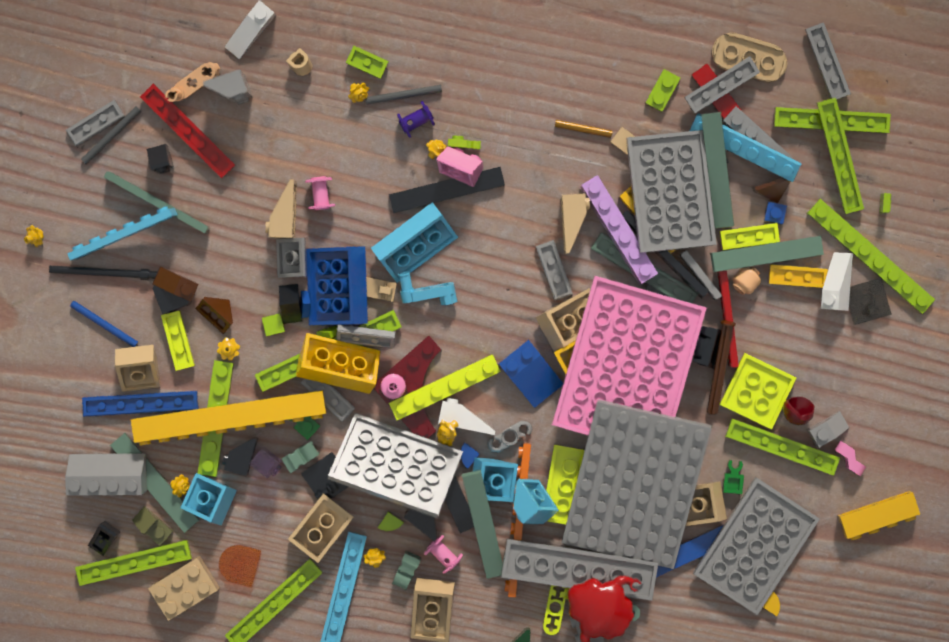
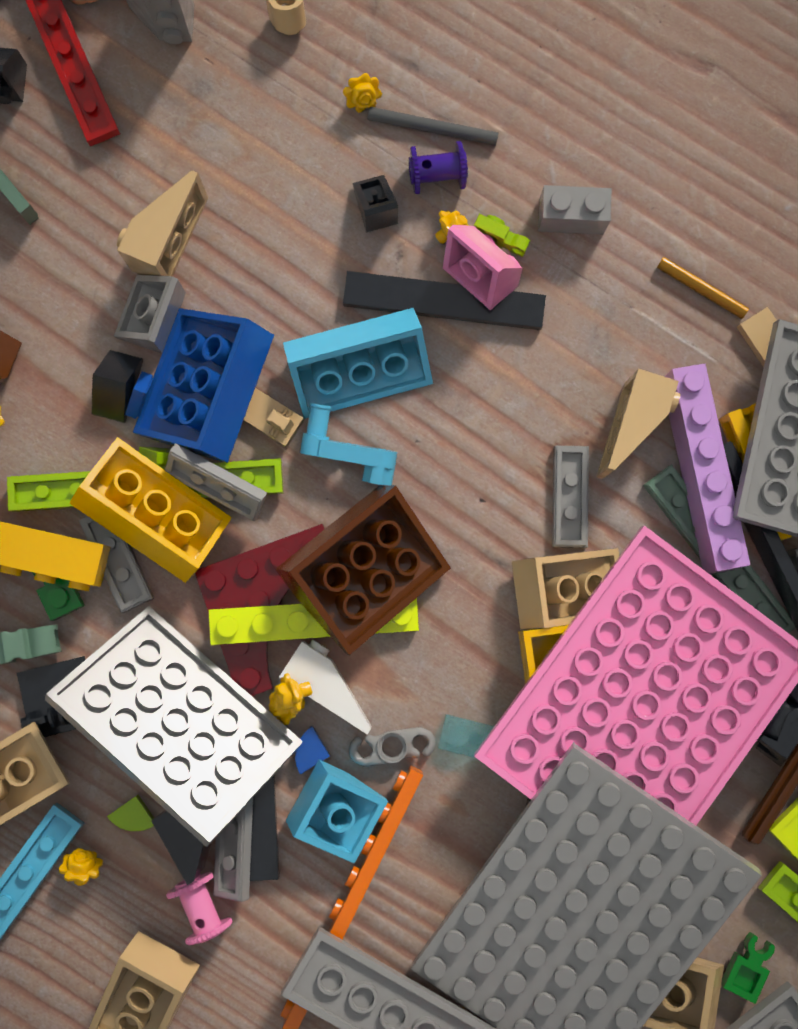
camera: 15 degrees right, 5 degrees down
(273, 324) = (74, 409): lime tile -> none
(320, 193) = (236, 224): bright pink hose -> none
(367, 62) = (394, 52): lime plate -> none
(388, 149) = (376, 203): none -> black slope
(397, 380) = (239, 580): bright pink head -> none
(406, 570) = (125, 912): sand green leg -> none
(450, 523) = (234, 857): none -> light grey tile
(460, 350) = (364, 568): none -> reddish brown slope
(483, 523) = (288, 881): sand green tile -> none
(498, 114) = (574, 209): none -> light grey brick
(531, 373) = (469, 653): blue slope -> none
(533, 502) = (388, 880): medium azure slope -> none
(543, 416) = (462, 735): none -> clear light blue plate
(562, 479) = (450, 862): neon yellow plate -> none

